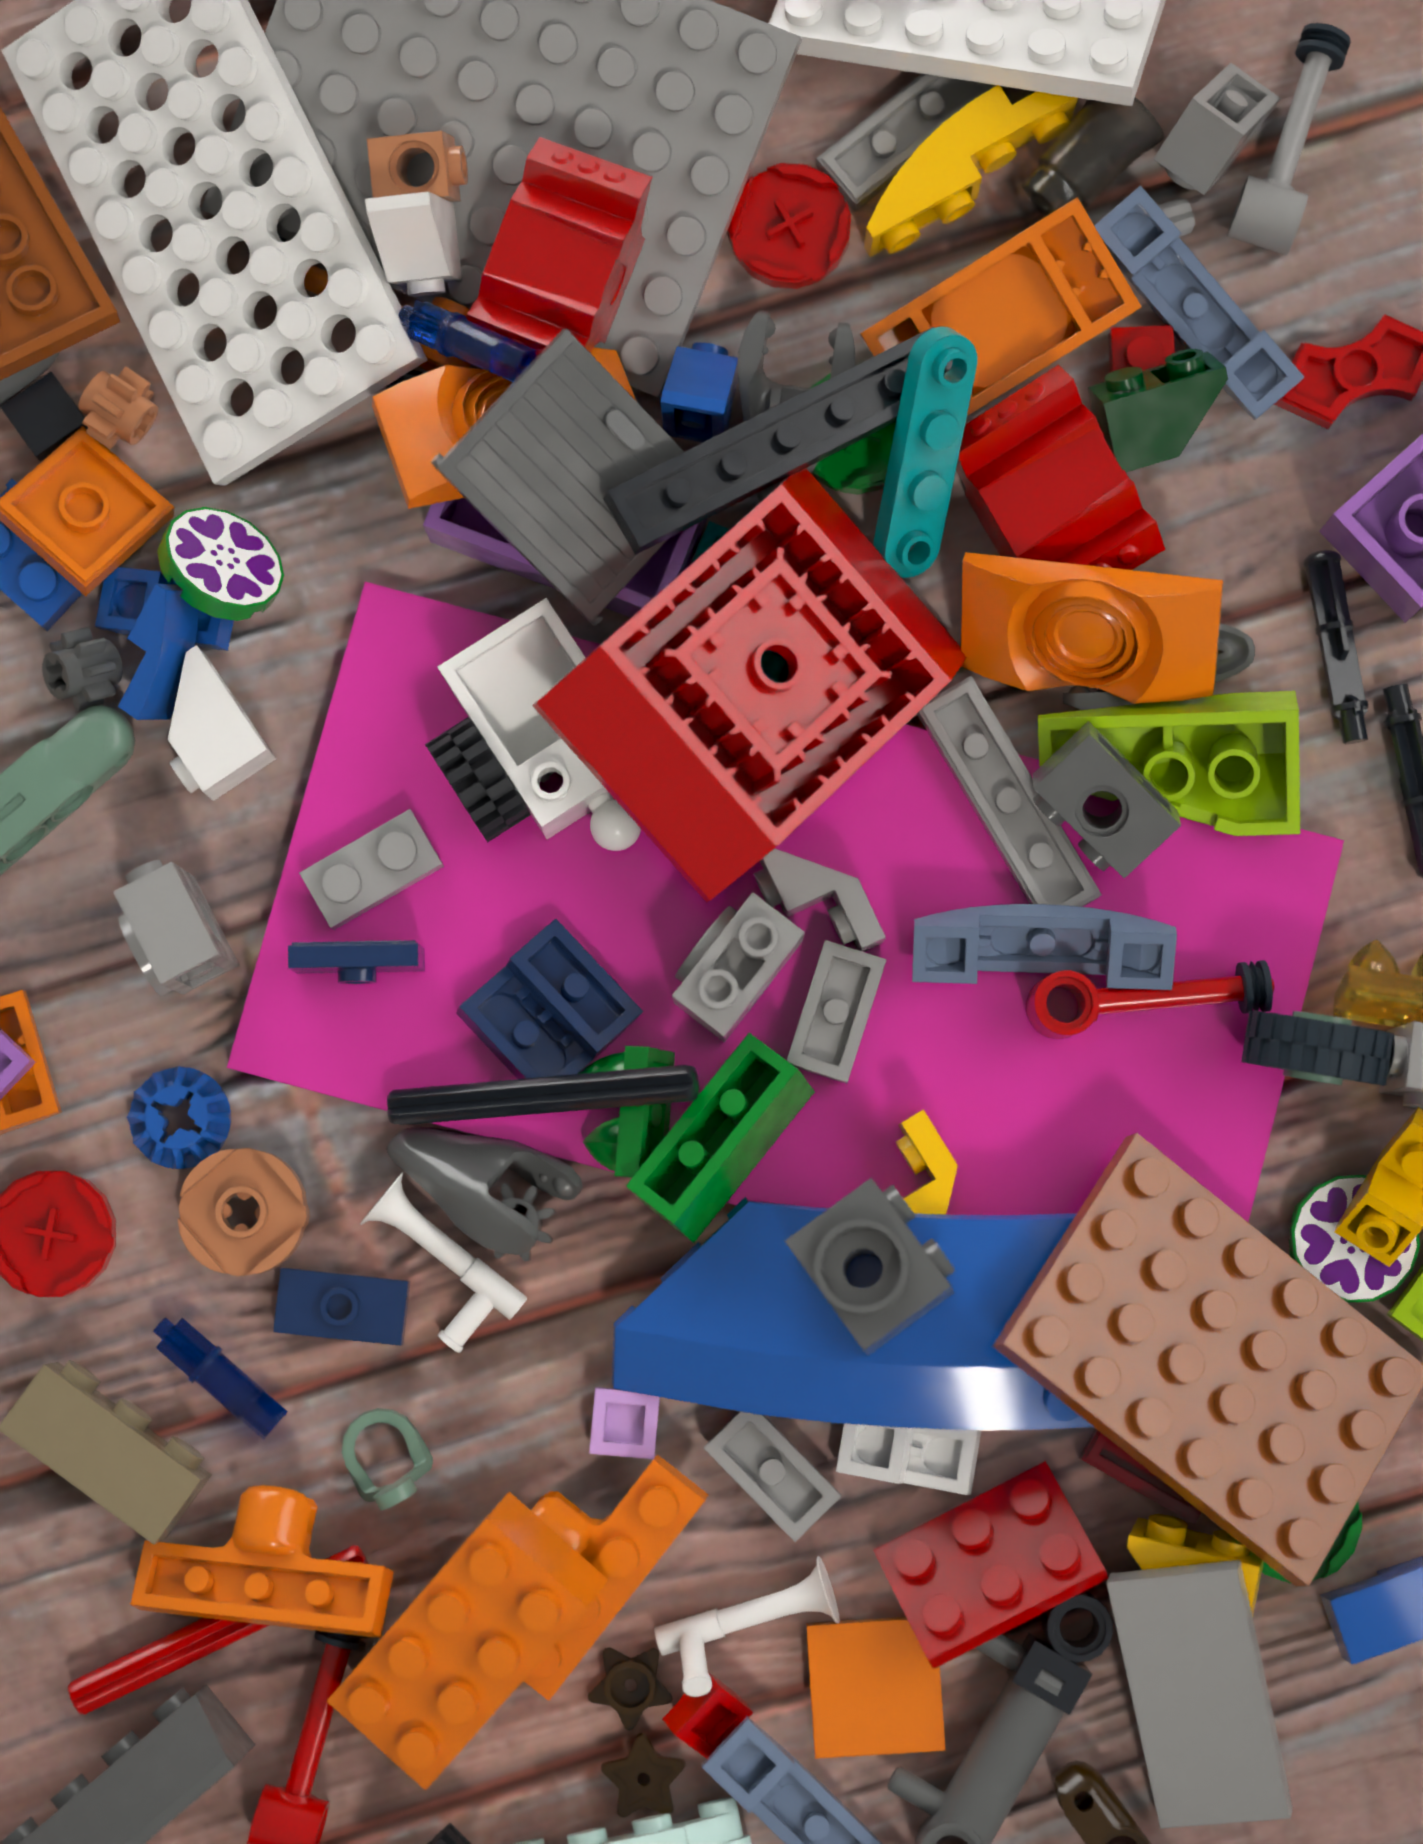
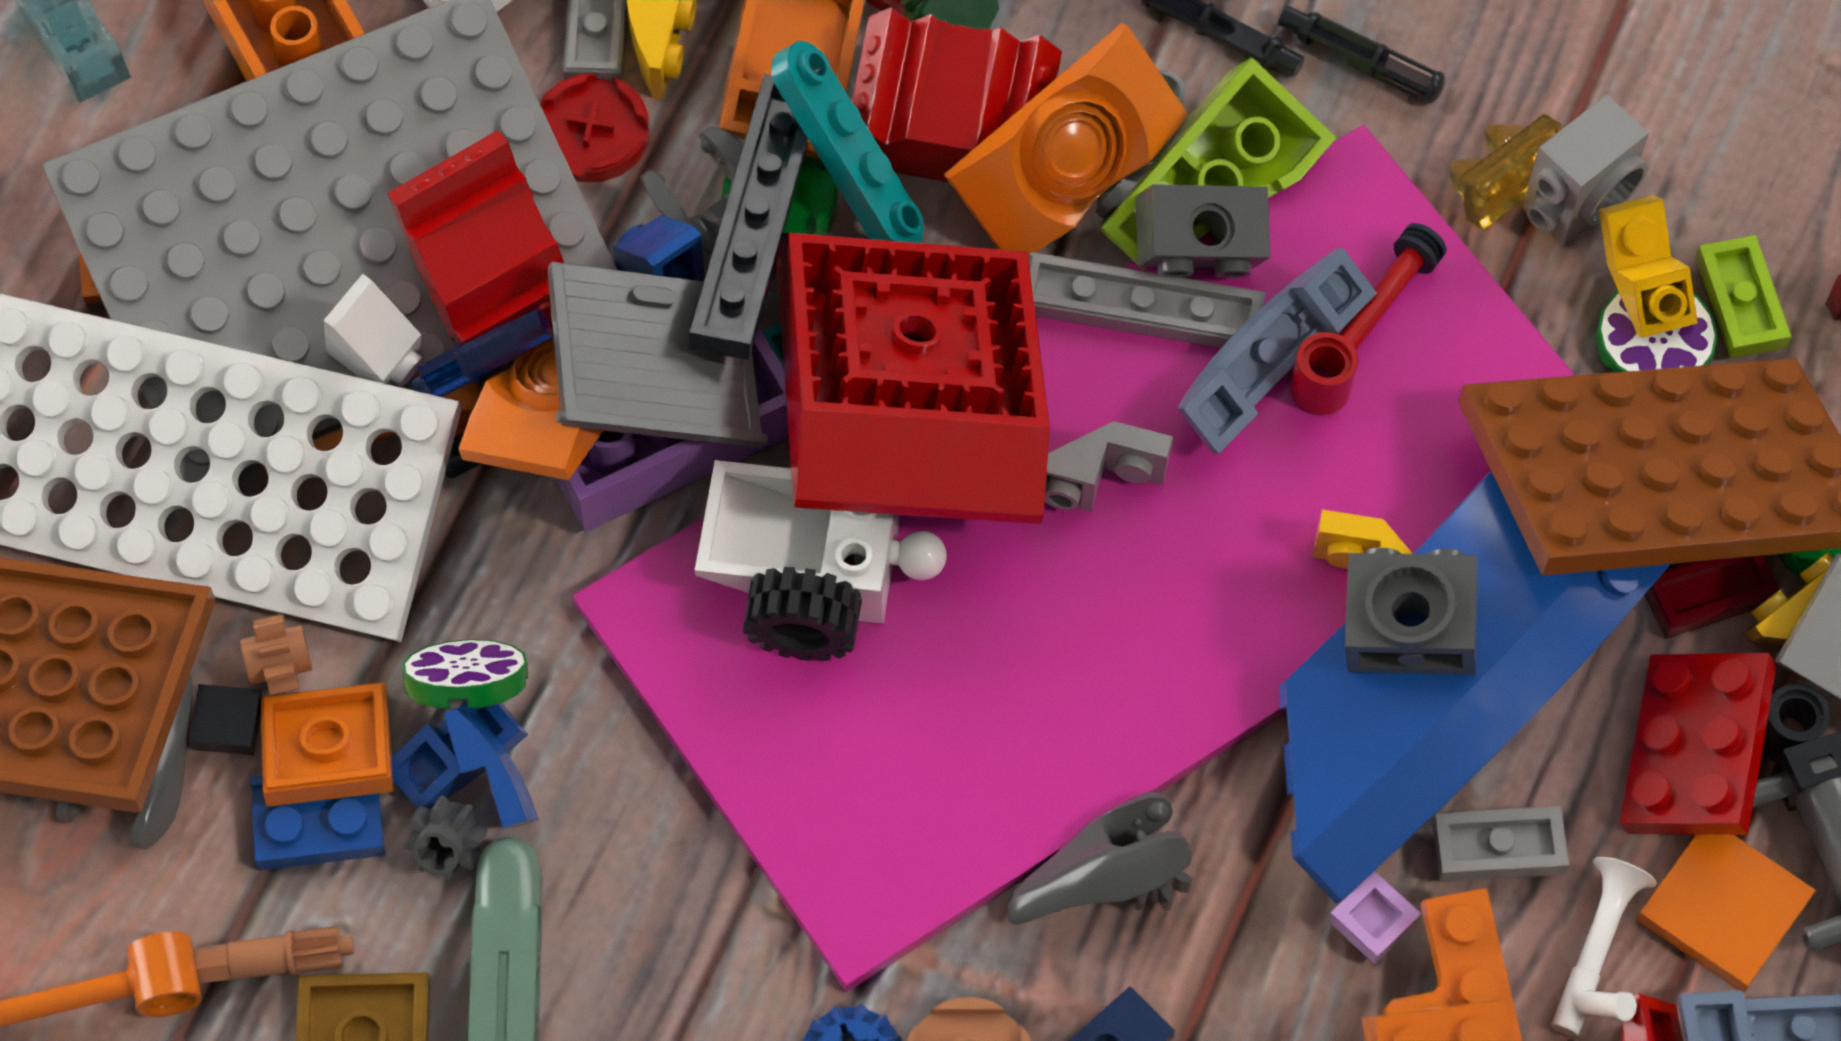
camera: 55 degrees left, 20 degrees down
(172, 928) = (710, 918): light grey brick -> none
(212, 732) = (581, 784): white slope -> none
(356, 960) = (854, 813): dark blue plate -> none
(371, 869) = (793, 756): light grey plate -> none
(392, 154) = (294, 308): nougat brick -> none
(489, 1287) = (1188, 934): white piece -> none
(543, 1095) = (1078, 756): black axle -> none
(549, 1008) = (1016, 718): dark blue slope -> none
(631, 1138) = (1121, 700): green tile -> none
(721, 1137) = (1221, 663): green brick -> none
(735, 964) = (1102, 554): light grey brick -> none
(836, 1011) = (1194, 524): light grey plate -> none
(911, 1456) = (1564, 741): white slope -> none
(1317, 1047) = (1502, 229): black wheel -> none

